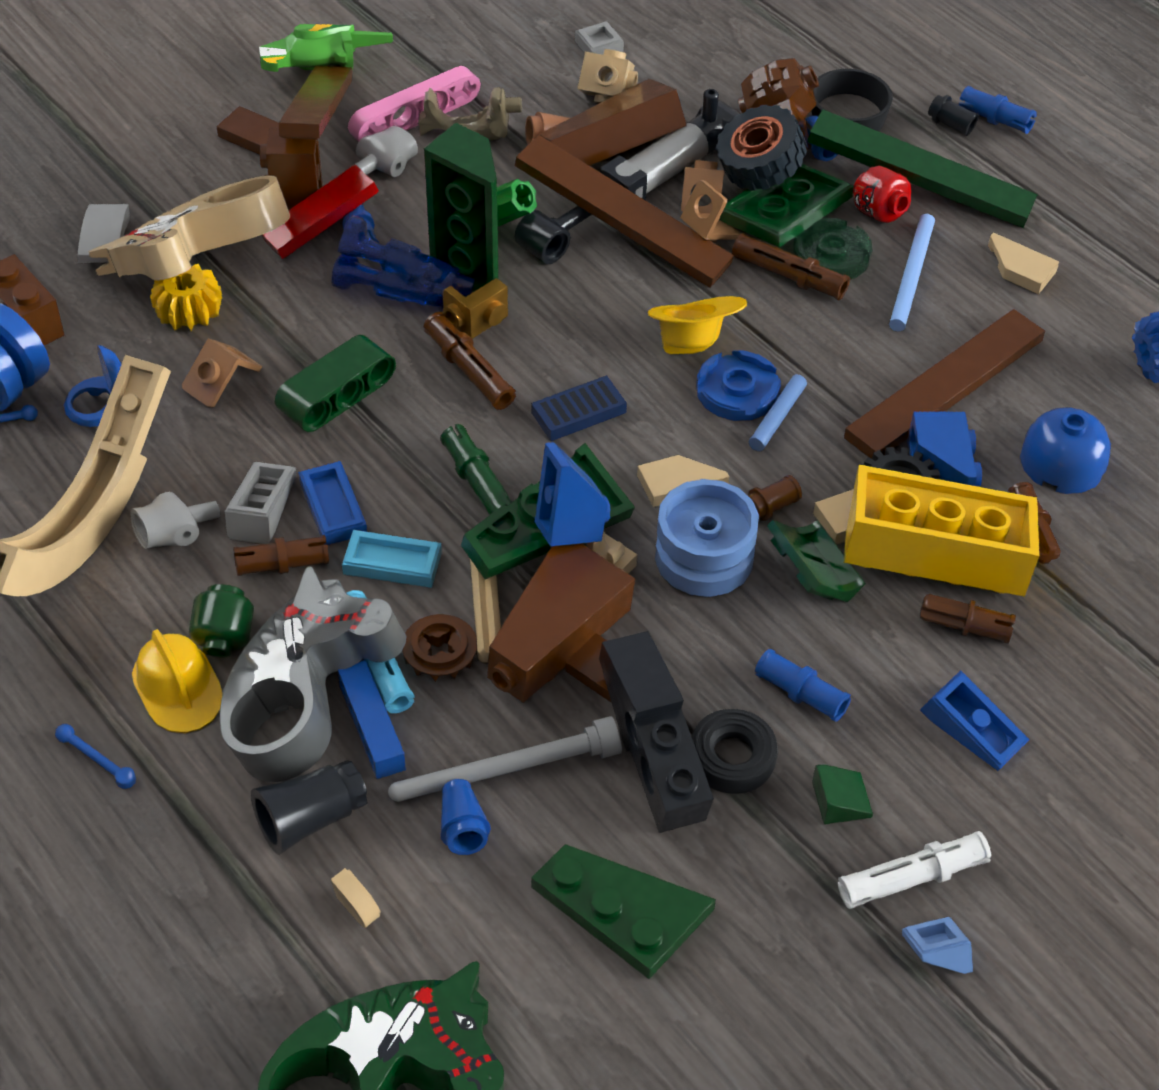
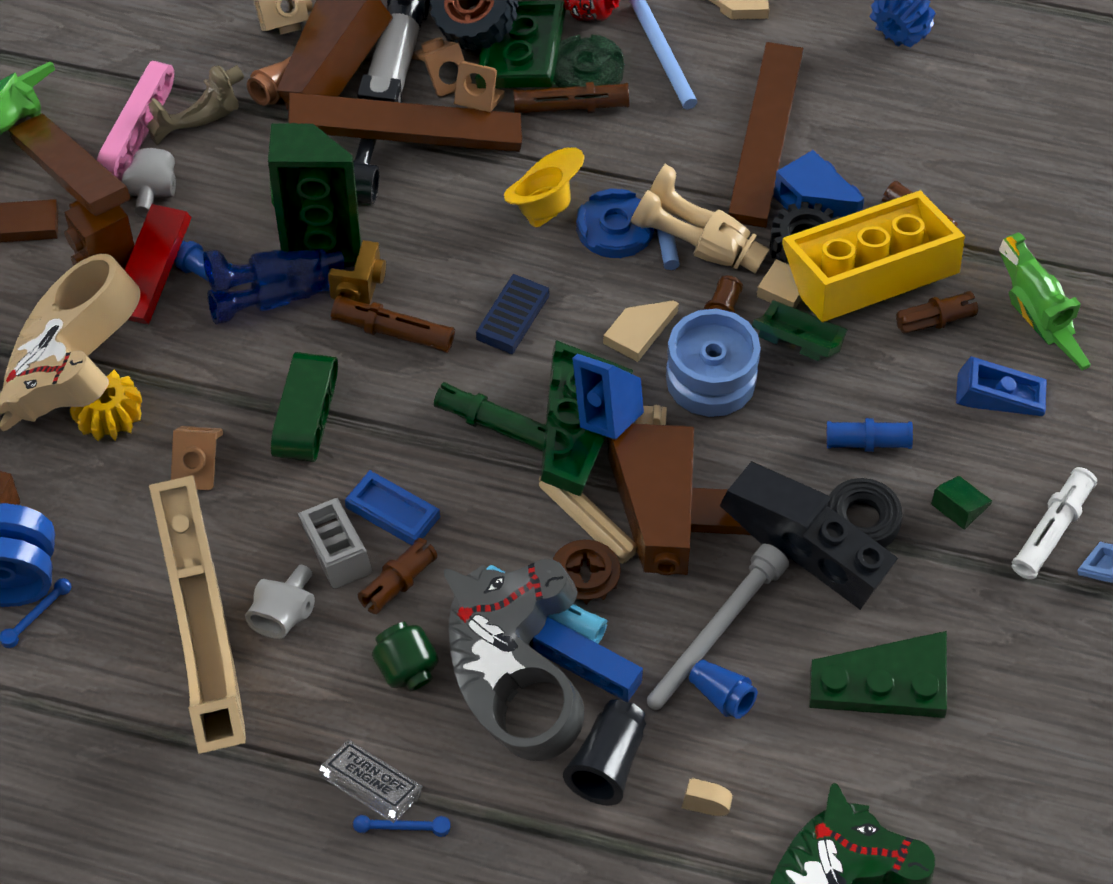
camera: 35 degrees left, 5 degrees up
(94, 386) = (128, 515): blue piece -> none
(101, 702) = (370, 780): none -> clear tile
(176, 683) = (410, 729): yellow piece -> none
(392, 558) = (481, 524): medium azure tile -> none
(818, 441) = (715, 234): none -> tan piece
(1066, 450) = (896, 139): blue cylinder -> none
(1085, 665) = (1041, 299): none -> bright green animal

